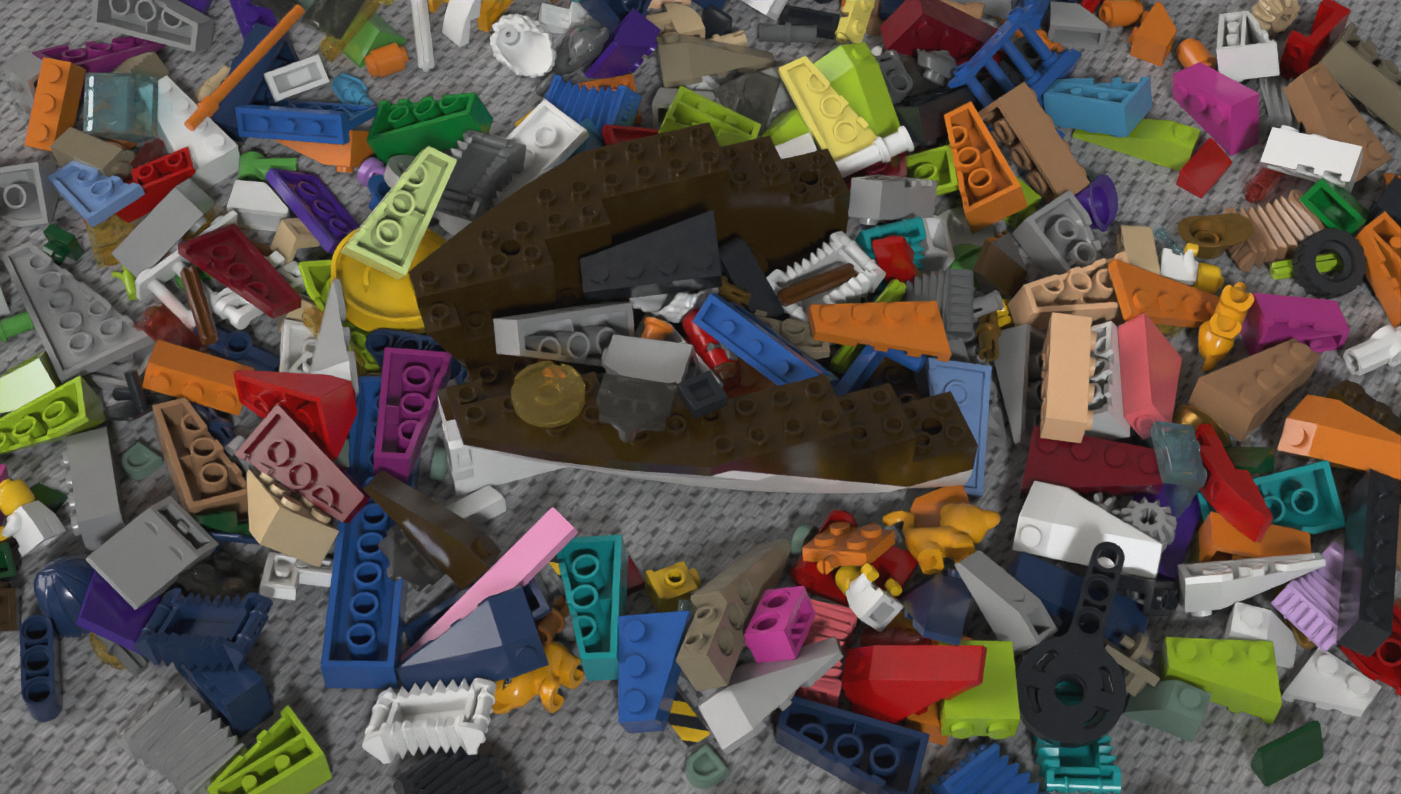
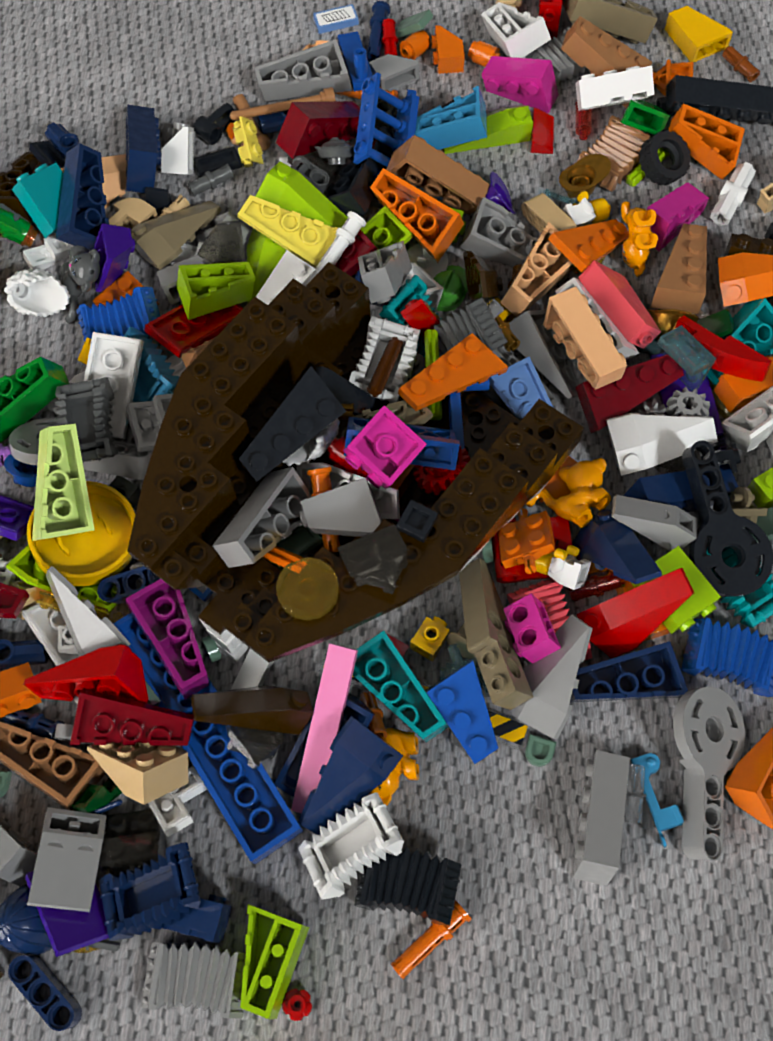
camera: 30 degrees left, 15 degrees up
(732, 329) = (384, 448): none -> dark pink plate

